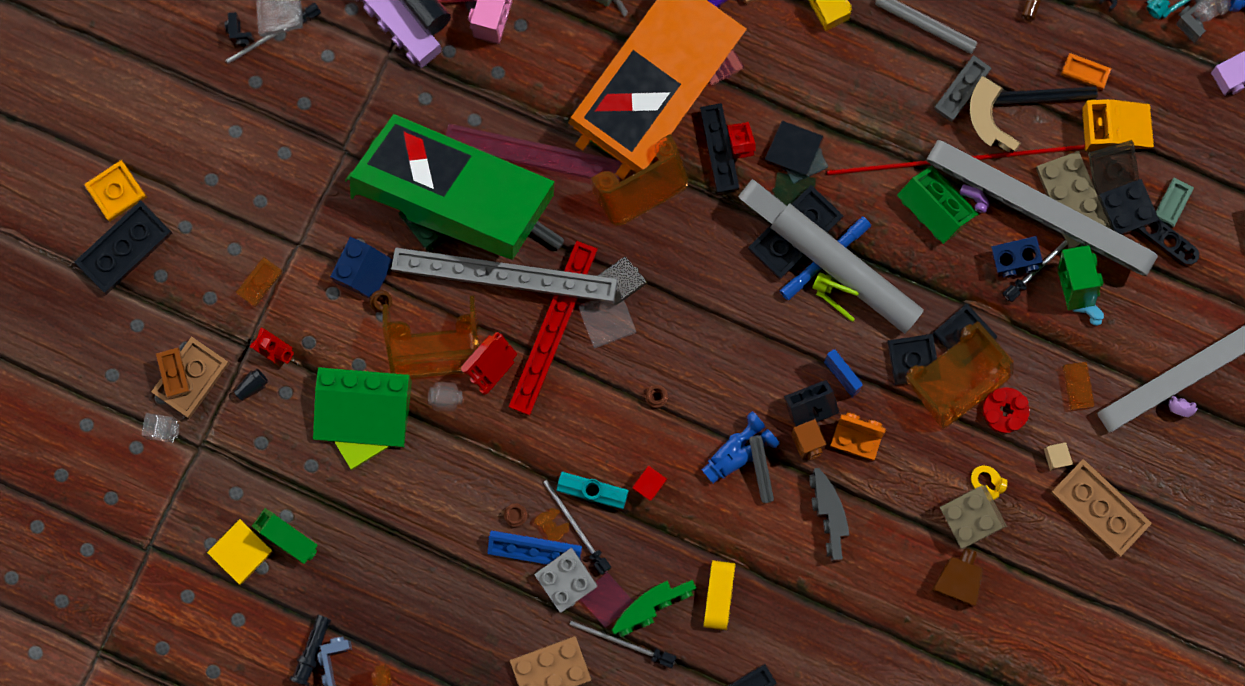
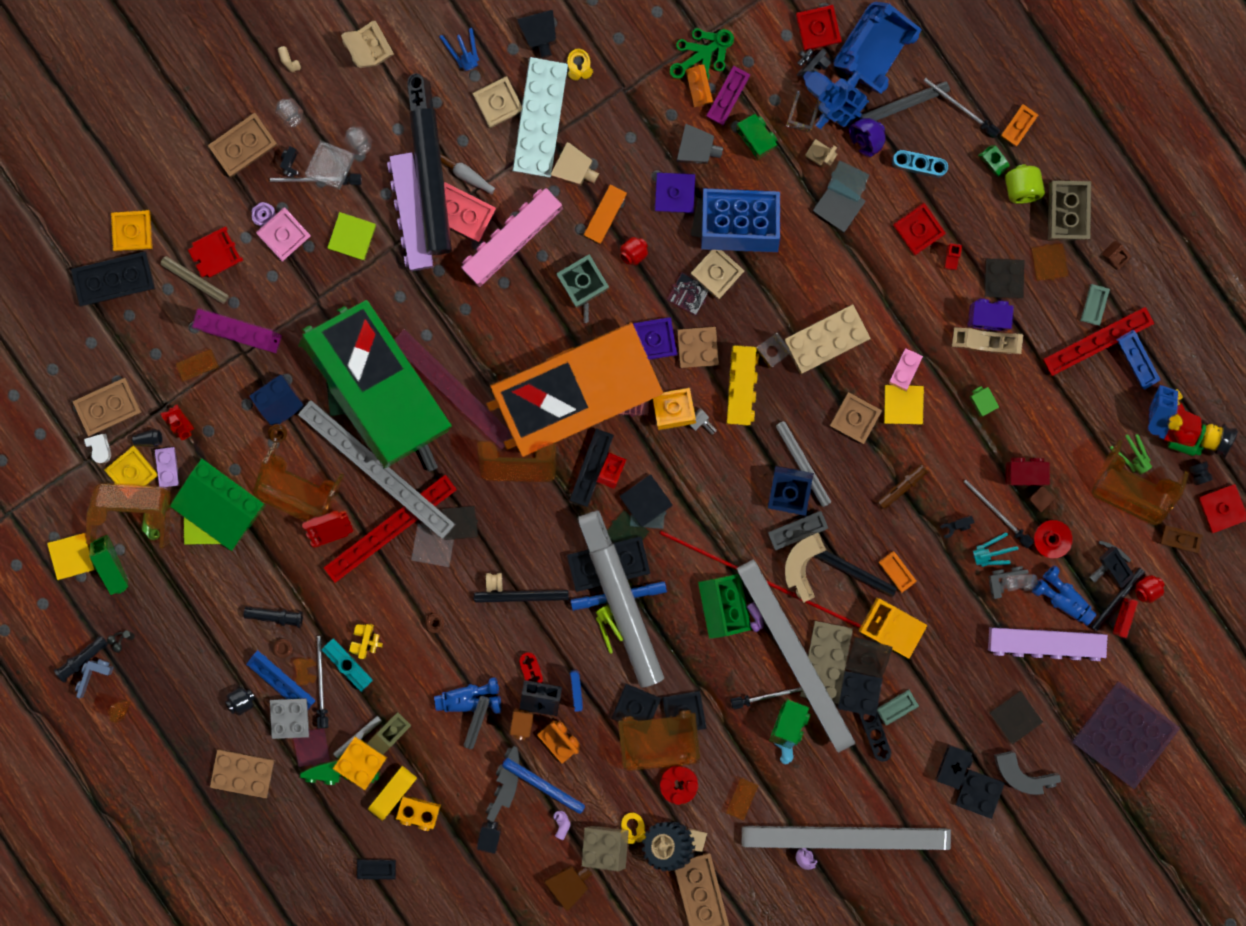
camera: 25 degrees right, 10 degrees up
(160, 428) = (64, 432): clear brick -> none
(173, 373) = (95, 398): dark orange plate -> none
(179, 42) = (242, 145): none -> medium nougat plate
(207, 201) = (194, 280): none -> dark tan axle
(208, 423) = (101, 450): none -> white leg
(212, 163) = (214, 253): none -> red plate
(240, 90) = (257, 213): none -> lavender plate
(253, 429) = (131, 469): none -> yellow tile
(271, 103) = (283, 234): none -> bright pink tile
(281, 215) = (237, 331): none -> magenta panel
(287, 403) = (167, 467): none -> lavender plate
(291, 439) = (145, 499): none -> clear orange windscreen
(303, 475) = (152, 534): none -> bright green arm
(341, 67) = (352, 236): none -> lime tile
(341, 617) = (117, 646): none -> pearl dark grey piece
(444, 396) = (281, 532): clear head -> none
(496, 483) = (282, 617): none -> black pin
(503, 594) = (239, 701): none -> black head
(591, 446) = (366, 632): none -> yellow hips
(648, 559) = (361, 734): none -> light grey bar
(649, 483) = (390, 685): red panel -> none
(666, 659) = (327, 815): piece -> none
(667, 580) = (360, 763): none -> light orange plate
(678, 537) = (389, 733): none -> olive slope
(691, 318) = (494, 582): none -> tan wheel
(727, 317) = (518, 596): none -> black axle
(756, 592) = (419, 807): none -> light orange brick
(765, 42) = (674, 409): none -> light orange plate
(784, 377) = (535, 667): none -> red beam
(796, 39) = (702, 419): none -> light grey piece
(847, 576) = (489, 836): none -> black brick
(870, 491) = (543, 785): none -> blue axle
(913, 520) = (563, 823): none -> lavender arm
(931, 51) = (790, 490): none -> dark blue brick
(1015, 250) = (757, 676): dark blue brick -> none
(1037, 474) = (668, 846): none -> black wheel

